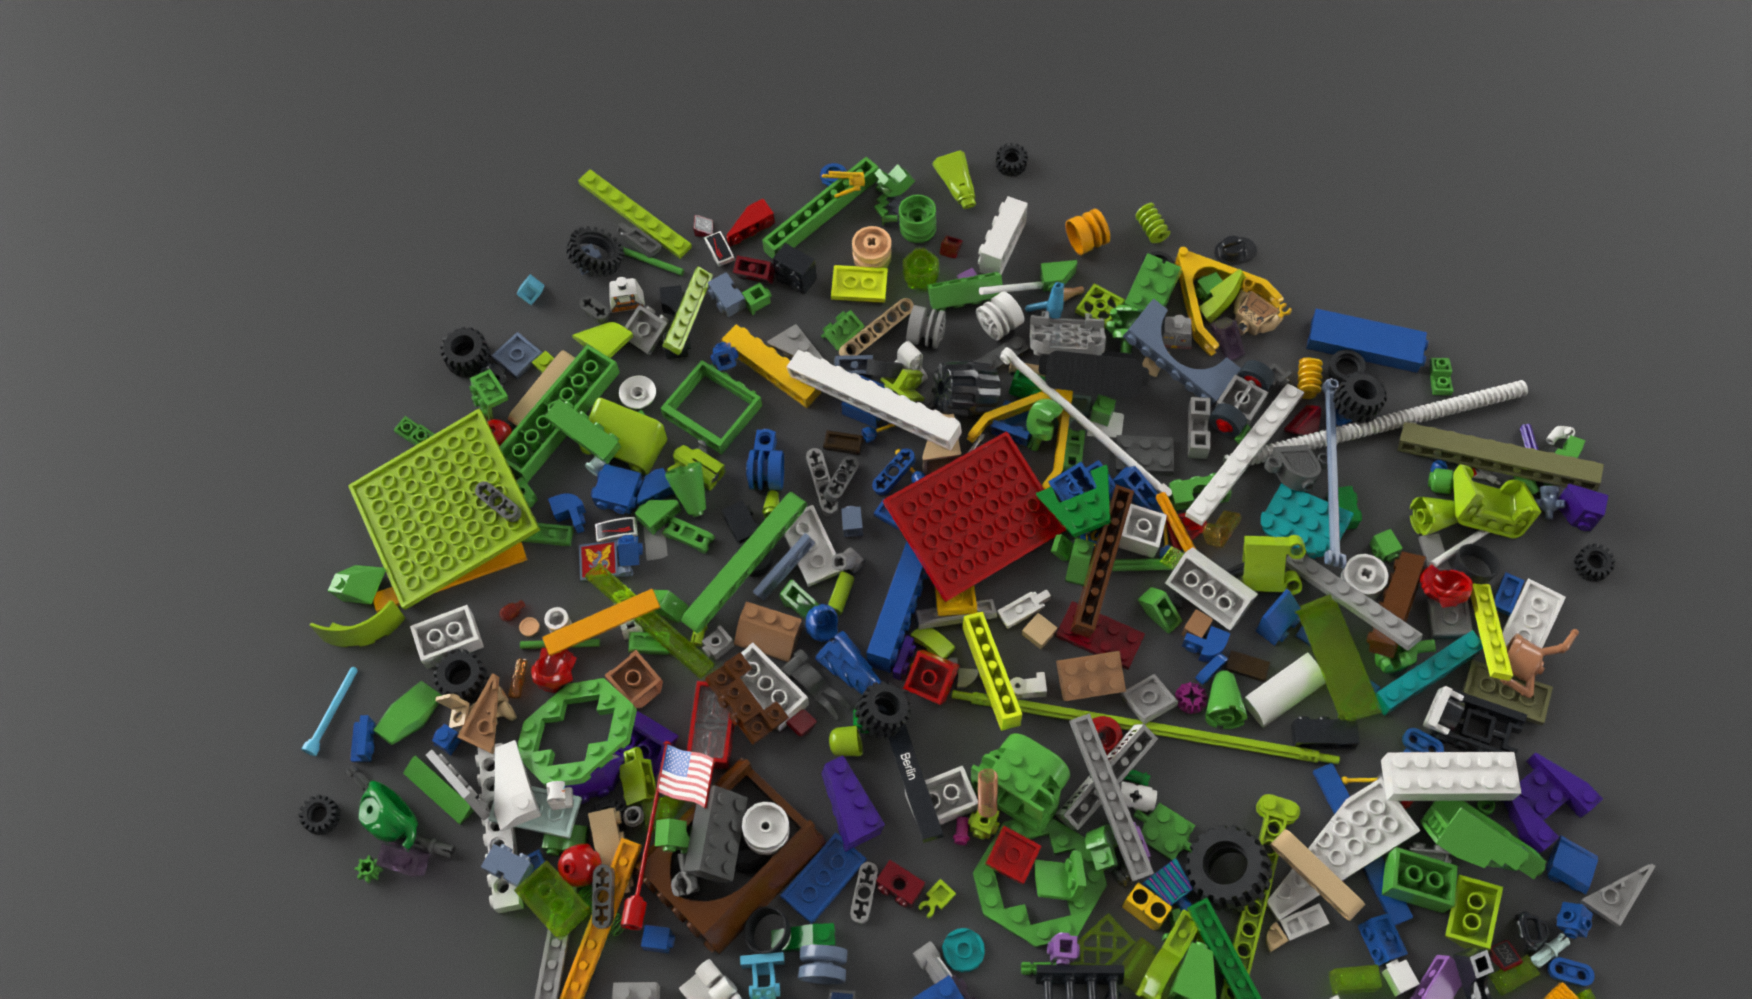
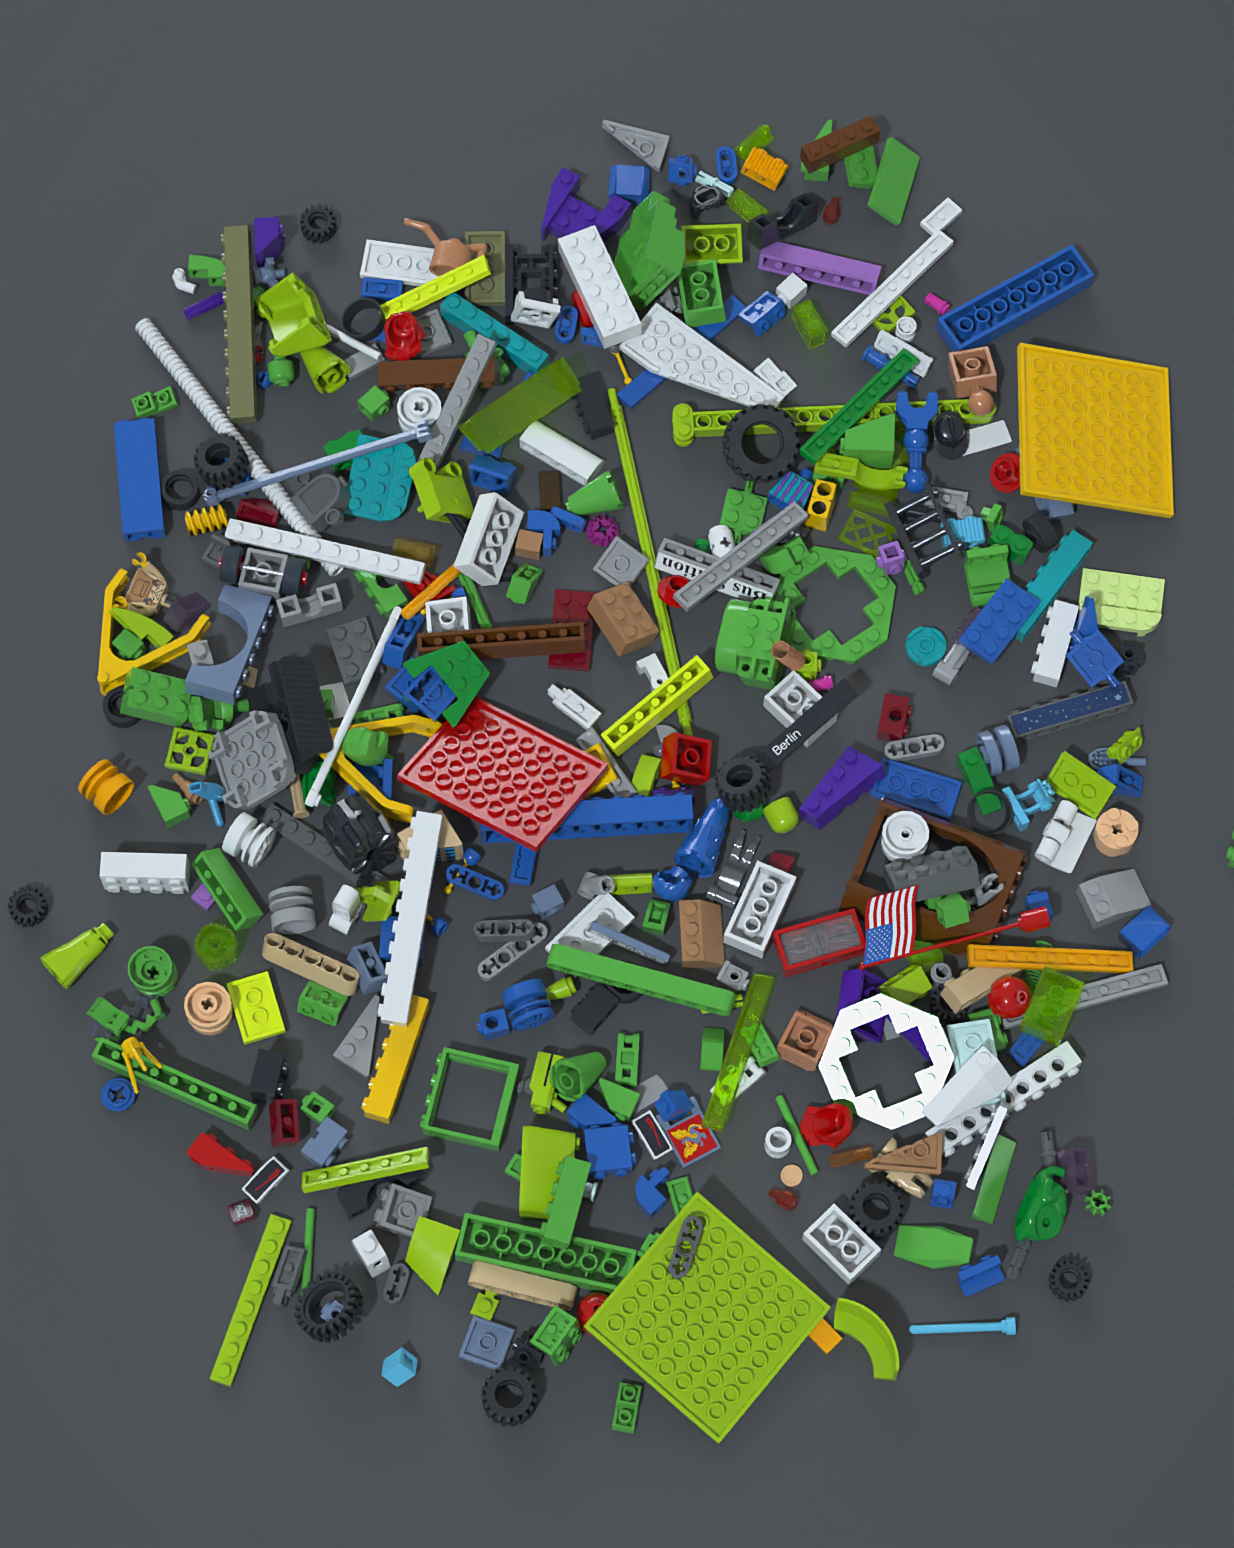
camera: 115 degrees left, 5 degrees up
(357, 584) = (822, 1367): bright green slope -> none
(457, 705) = (909, 1196): tan bracket -> none
(503, 862) = (1039, 1057): sand blue brick -> none
(559, 796) = (959, 1036): white leg -> none
(596, 890) = (1034, 952): dark grey beam -> none
(601, 622) = (764, 1092): light orange tile -> none
(637, 385) = (481, 1175): white dish -> none
(724, 362) = (410, 1104): blue brick -> none
(740, 702) = (791, 917): reddish brown bracket -> none
(843, 442) = (457, 950): dark brown tile -> none
(883, 368) = (368, 923): black tyre -> none
(938, 897) = (889, 681): lime plate -> none
(950, 247) = (168, 931): dark red slope -> none
(1010, 288) = (209, 841): white bar -> none
(1013, 855) = (826, 628): red plate -> none
(1039, 631) = (591, 685): tan piece -> none
(1061, 879) = (828, 581): bright green bracket -> none
(1062, 547) = (494, 693): bright green plate -> none
(1079, 561) = (504, 671): bright green slope -> none
(1152, 223) = (64, 728): lime piece -> none
(1172, 557) = (470, 583): clear neon green plate -> none
(1235, 250) = (66, 639): black piece -> none
(1275, 937) = (798, 398): tan tile -> none
(1317, 875) = (734, 373): tan beam -> none
(1505, 955) = (736, 214): slope -> none

